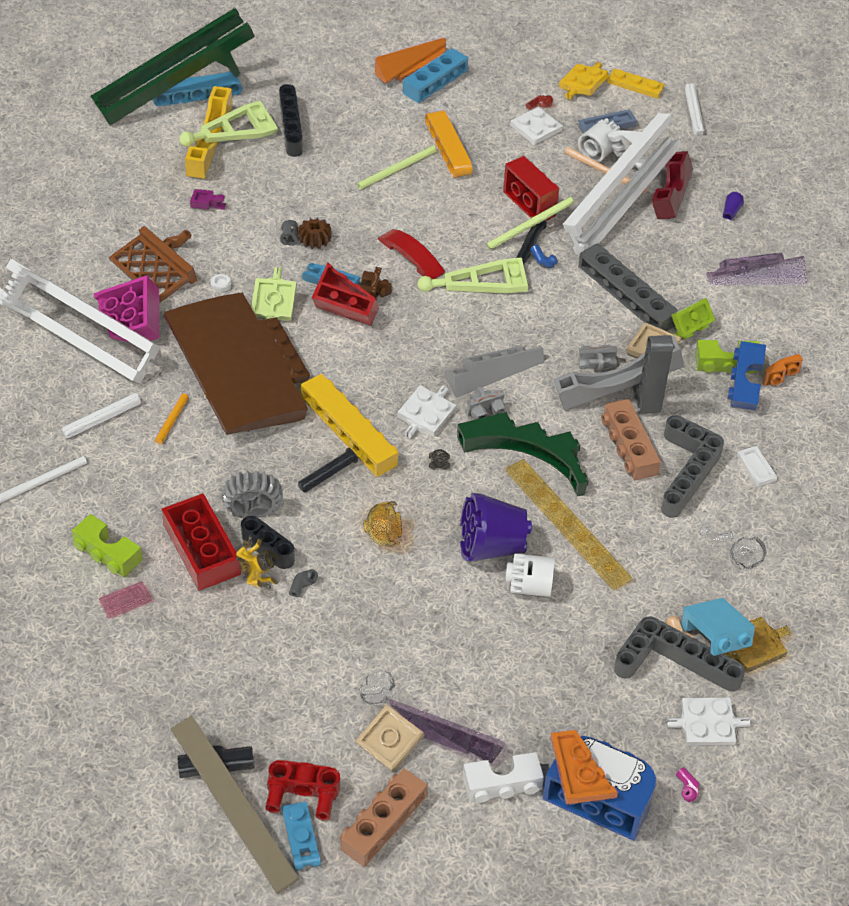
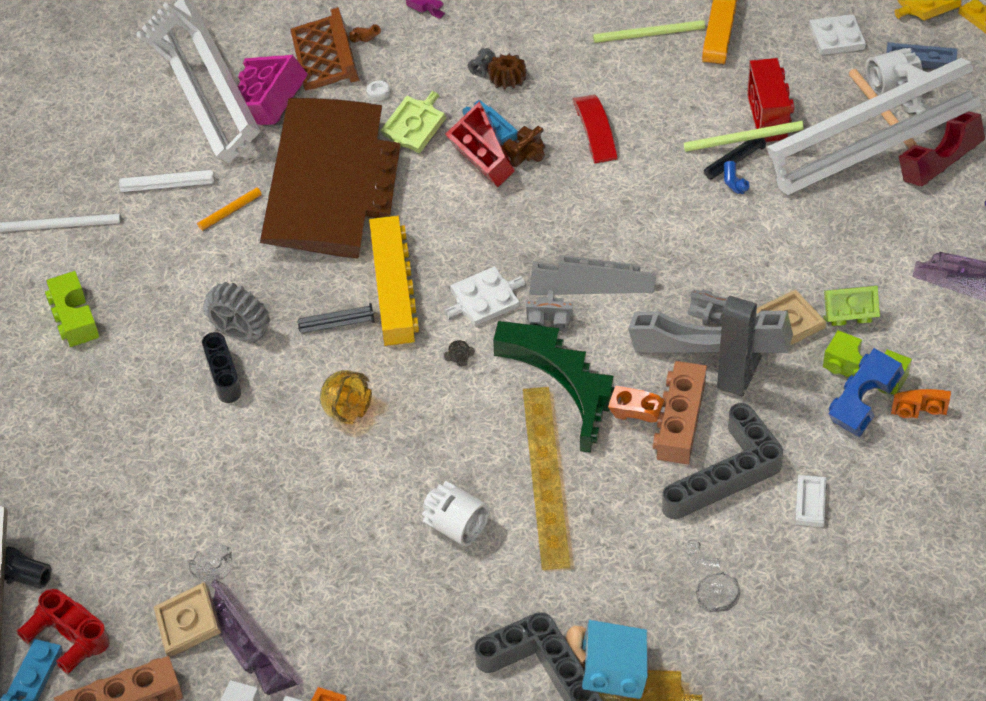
camera: 35 degrees right, 0 degrees up
(125, 599) = (52, 369): clear pink tile -> none
(201, 541) = (155, 340): red brick -> none
(256, 564) = (189, 384): animal -> none
(302, 580) = (227, 420): dark grey arm -> none
(492, 528) = (447, 445): dark purple cone -> none
(512, 269) = (683, 193): yellowish green plate -> none
(540, 101) = (861, 9): clear red arm -> none
(600, 445) = (635, 404): none -> orange leg
(627, 287) = (804, 243): dark grey brick -> none

